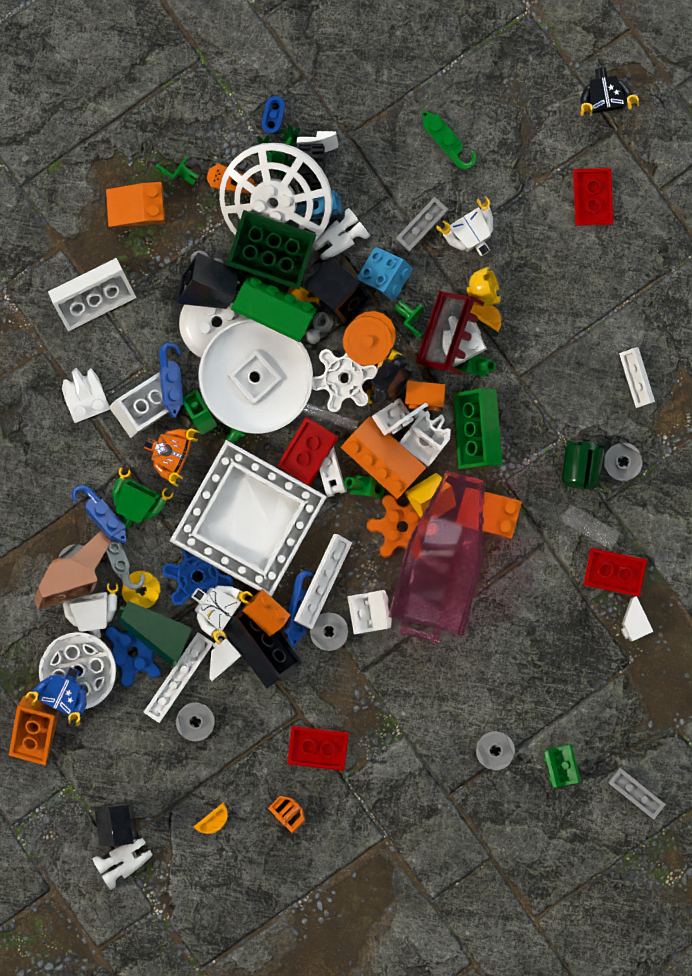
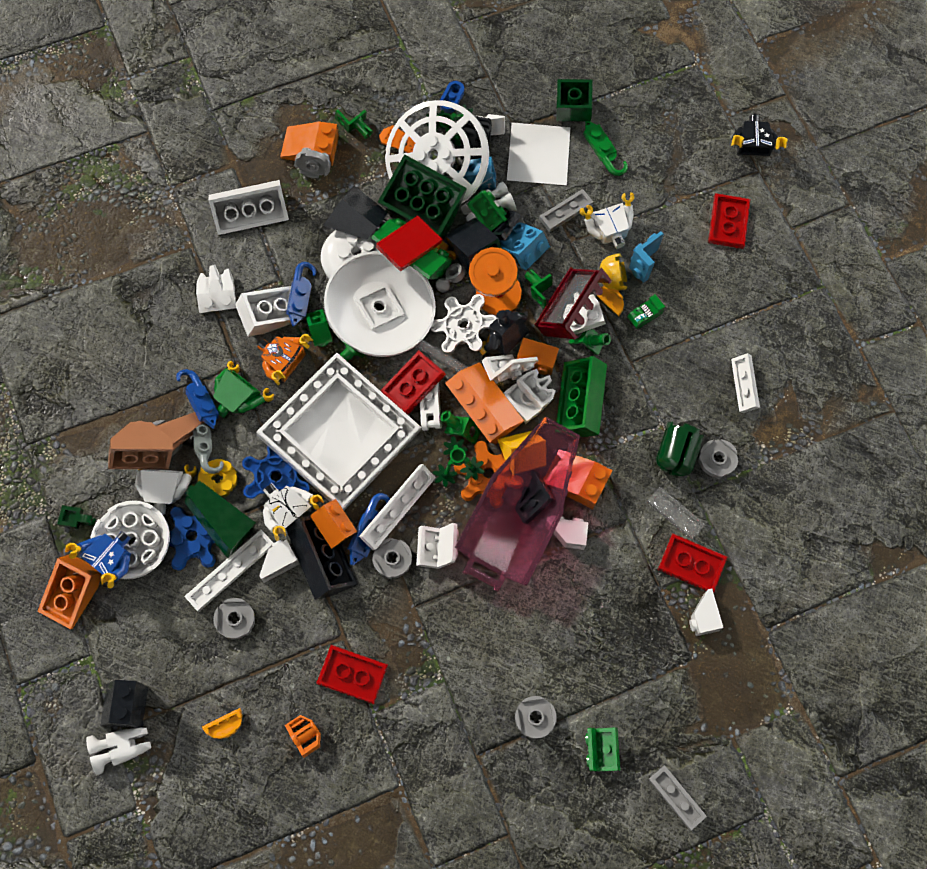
camera: 10 degrees right, 15 degrees down
(13, 659) = (73, 516): none -> dark green plate
(146, 233) = (308, 157): none -> light grey plate
(271, 308) = (409, 243): none -> red tile
(340, 250) = (486, 210): none -> green bracket
(361, 259) = (504, 229): none -> black wing
(370, 525) = (457, 458): none -> dark green plant
(379, 160) = (538, 154): none -> white sticker
(405, 94) = (574, 99): none -> dark green brick
(452, 546) = (533, 499): none -> black wing
(496, 569) = (572, 533): none -> slope
(512, 275) = (641, 263): none -> dark azure bracket
(525, 322) = (646, 312): none -> green leg

